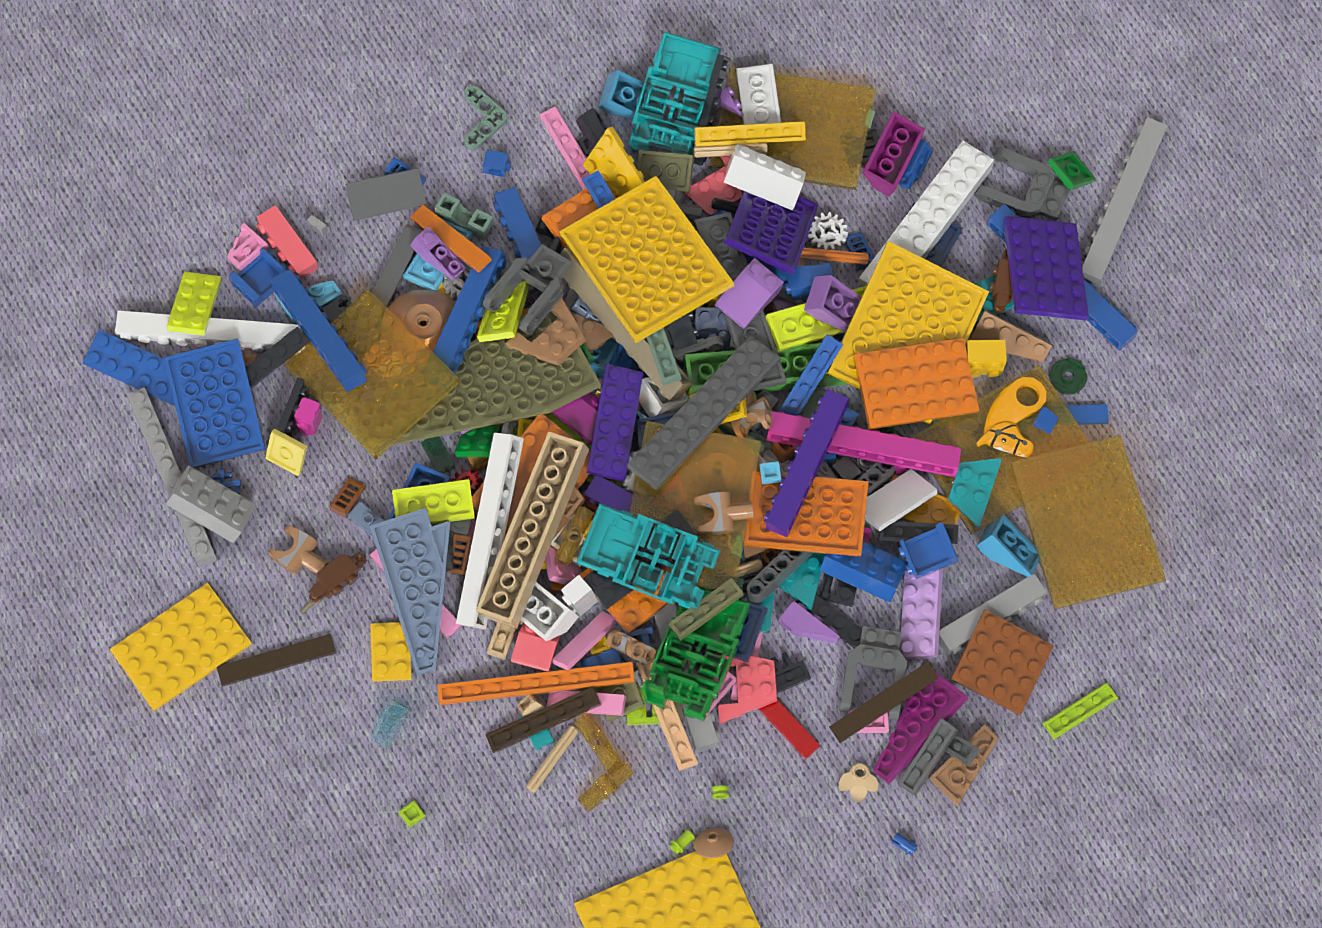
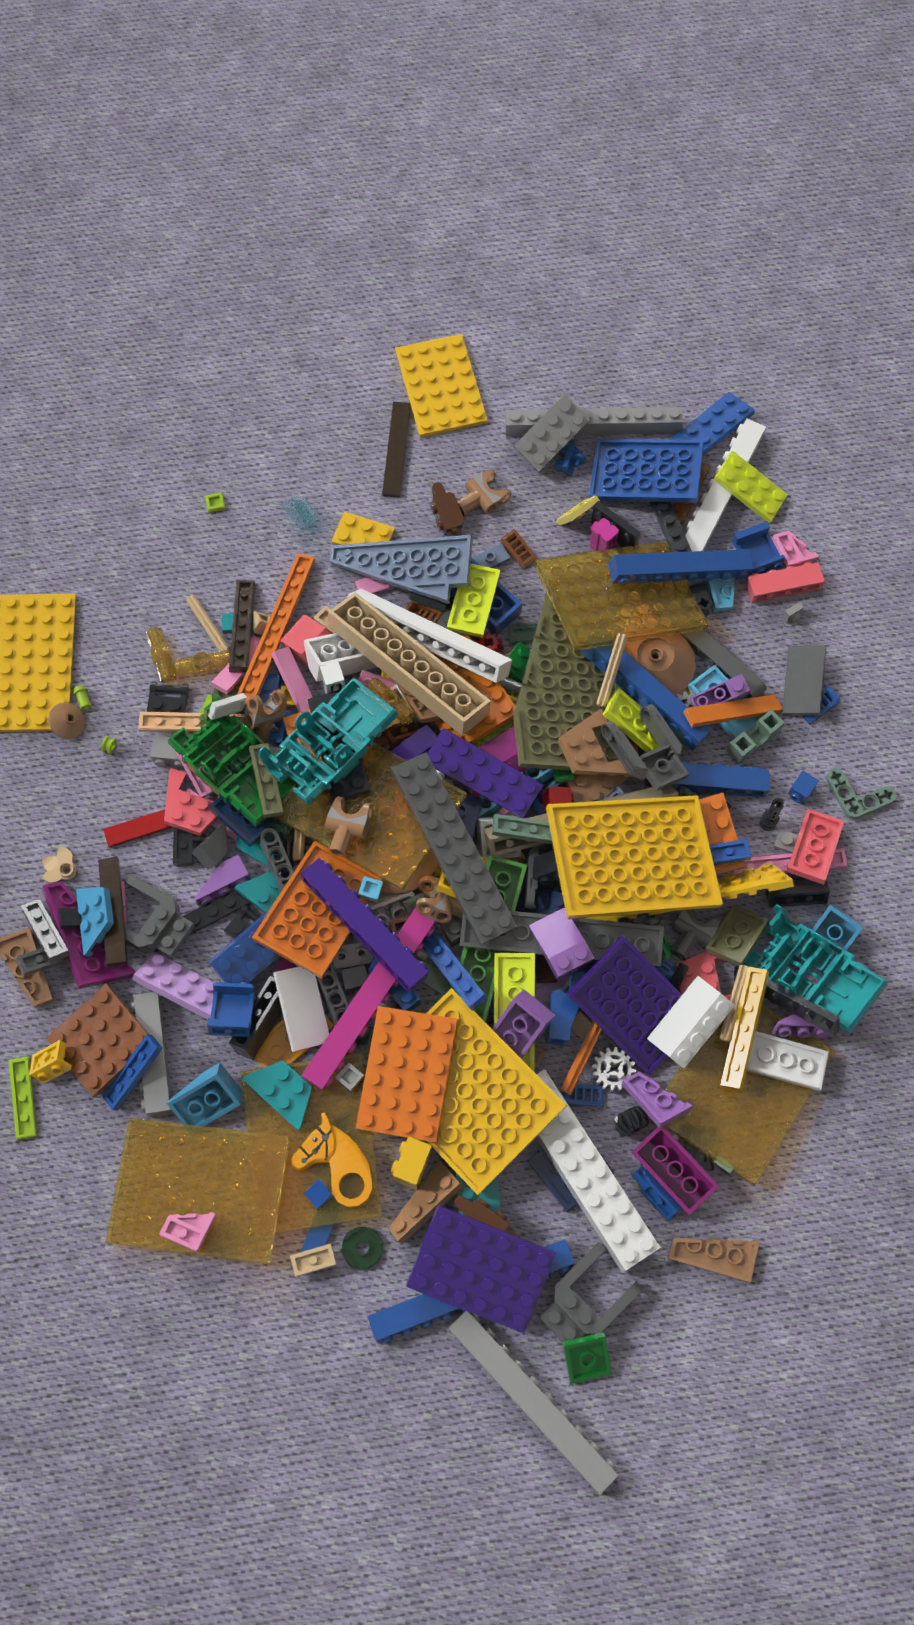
camera: 115 degrees right, 0 degrees up
(465, 344) = (612, 669): none -> tan axle
(540, 177) = (772, 815): none -> black pin
(551, 134) = (815, 846): none -> coral plate
(553, 164) = (785, 841): none -> light grey plate
(607, 353) = (557, 795): none -> red brick
(644, 673) = (227, 706): none -> white tile
(654, 758) = (164, 703): none -> black plate
(782, 645) = (213, 848): none -> dark grey slope
(844, 183) = (656, 1102): none -> medium lavender wing
(866, 201) = (631, 1121): none -> black gear
(895, 716) = (95, 916): none -> dark azure wing
(907, 739) = (69, 918): none -> black tile
(938, 433) = (349, 1077): none -> light grey plate
(943, 102) = (722, 1257): none -> medium nougat wing
(1018, 617) = (132, 1072): none -> blue plate
(1041, 696) = (49, 1062): none -> yellow bracket
(1099, 406) = (313, 1260): none -> tan plate
(1125, 509) = (188, 1229): none -> bright pink wing

